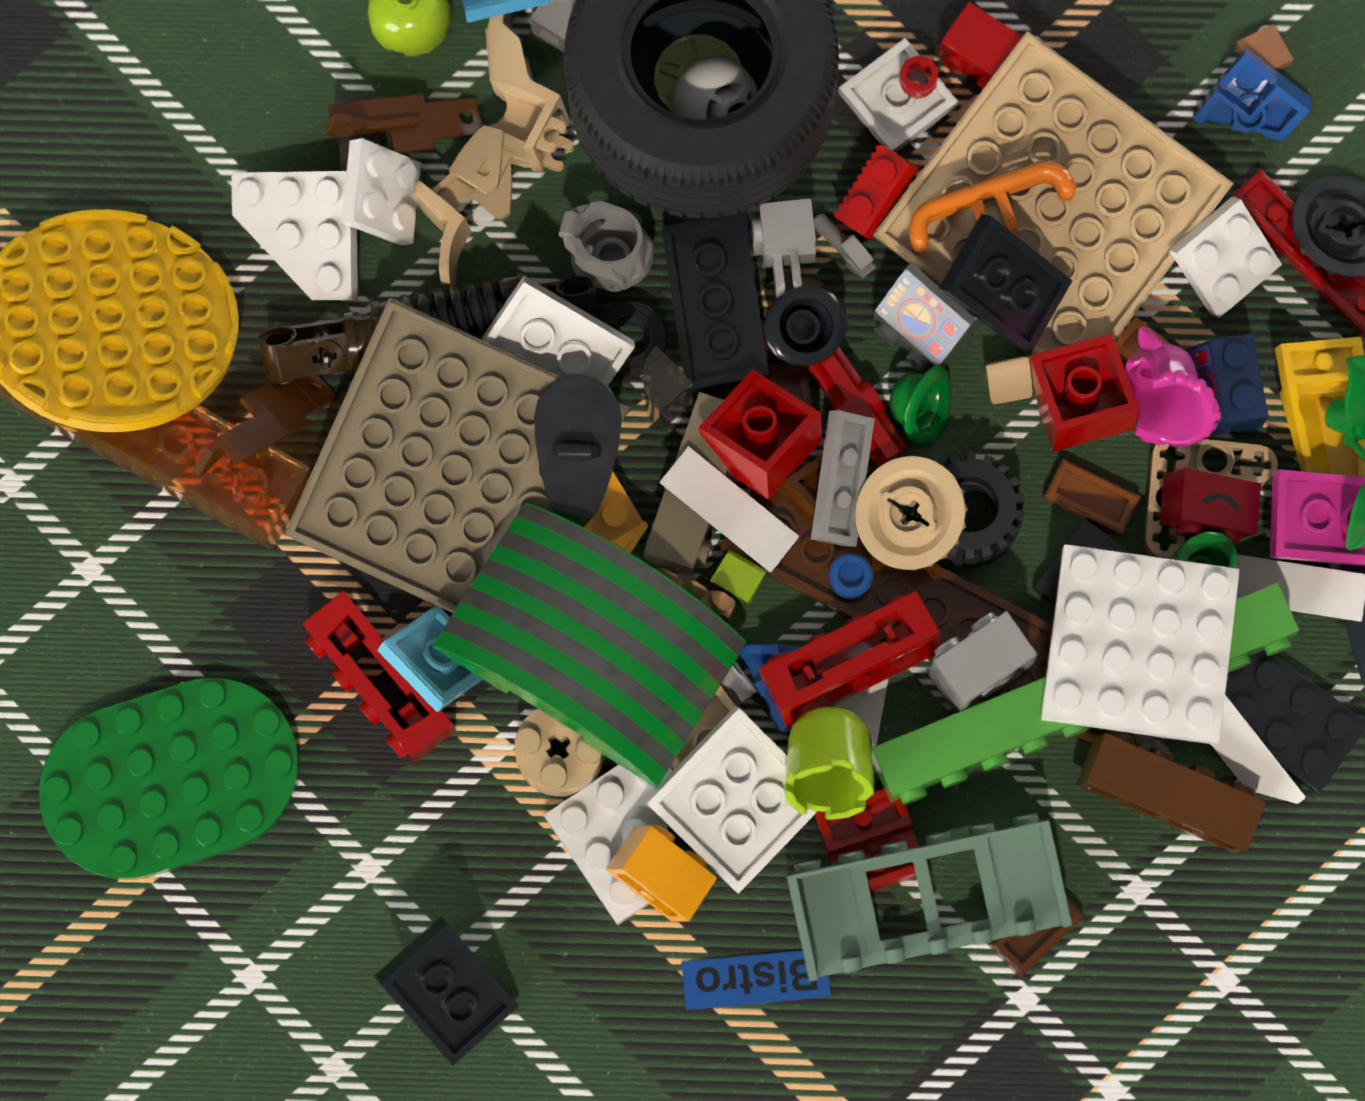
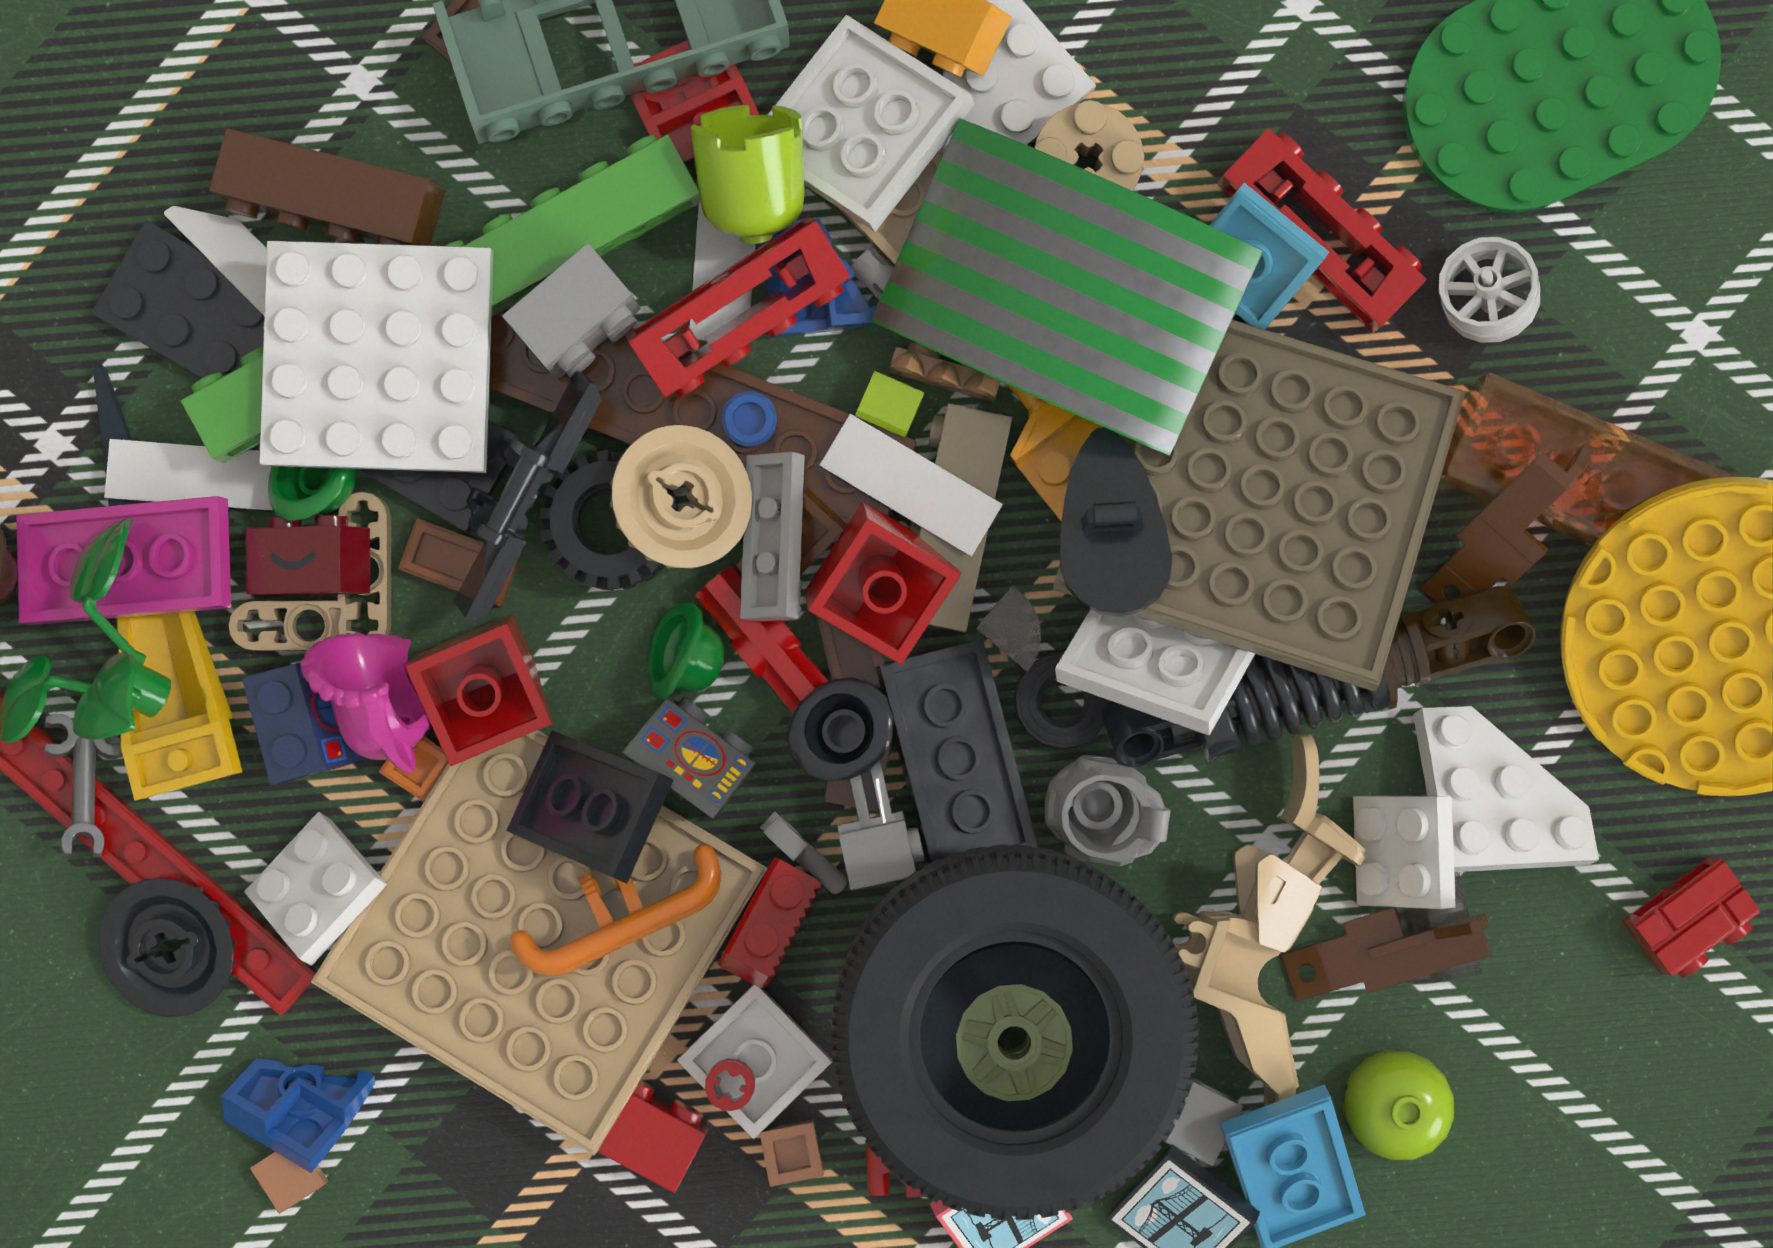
camera: 170 degrees right, 10 degrees up
(166, 123) = (1692, 918): none -> red brick
(253, 614) = (1489, 289): none -> white wheel
(712, 89) = (990, 1001): white brick -> none
(876, 27) = (791, 1153): none -> nougat tile
(1009, 380) = (576, 698): tan slope -> none
(1053, 518) = (504, 519): none -> black piece

